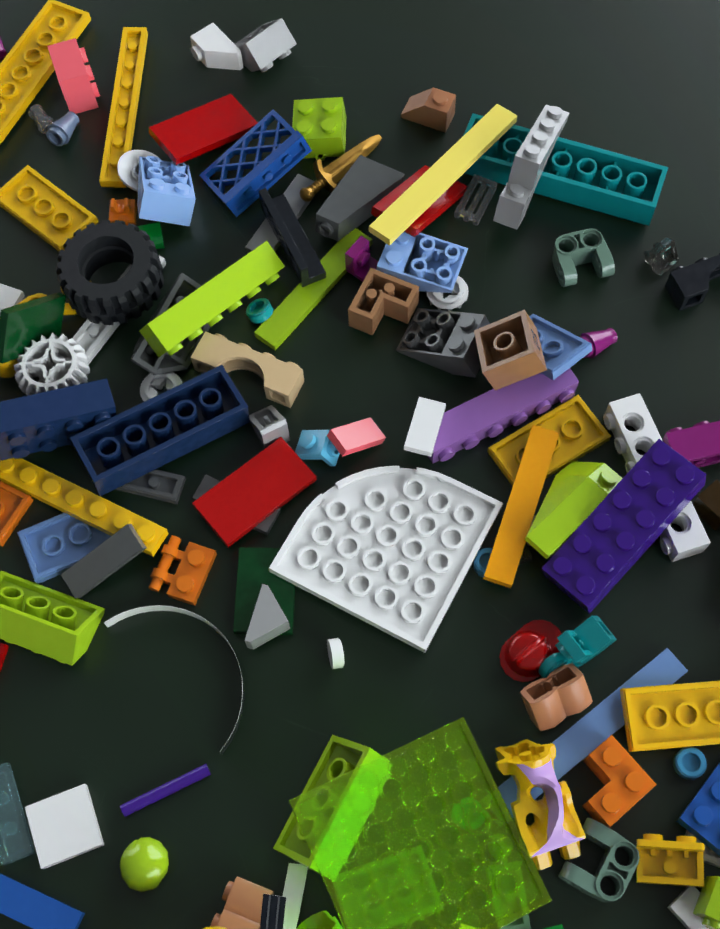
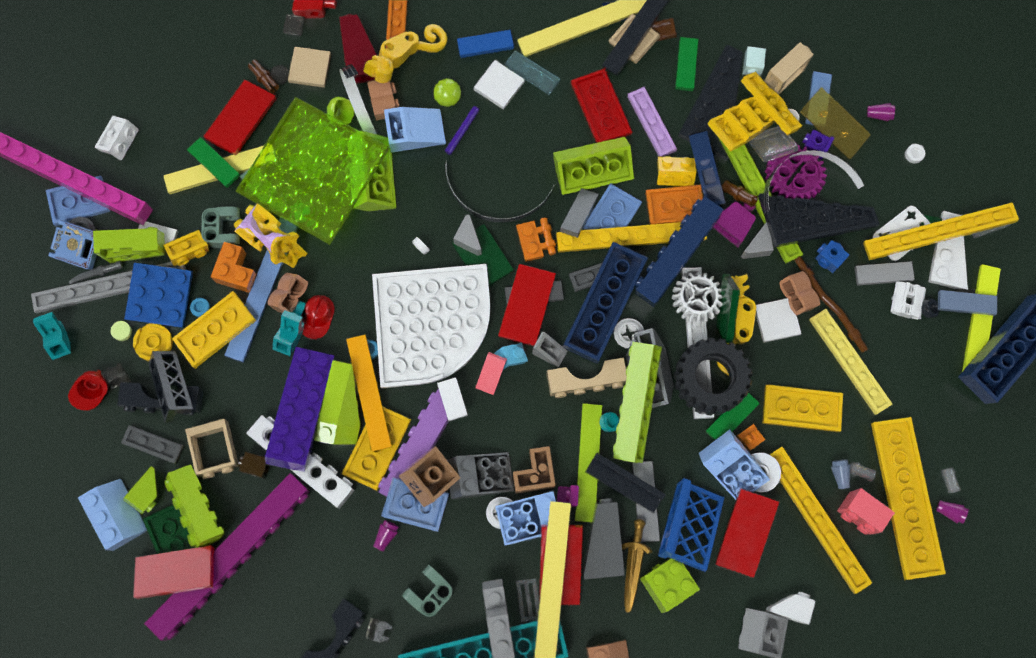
camera: 140 degrees right, 10 degrees up
(230, 832) = (413, 128): none -> light blue slope

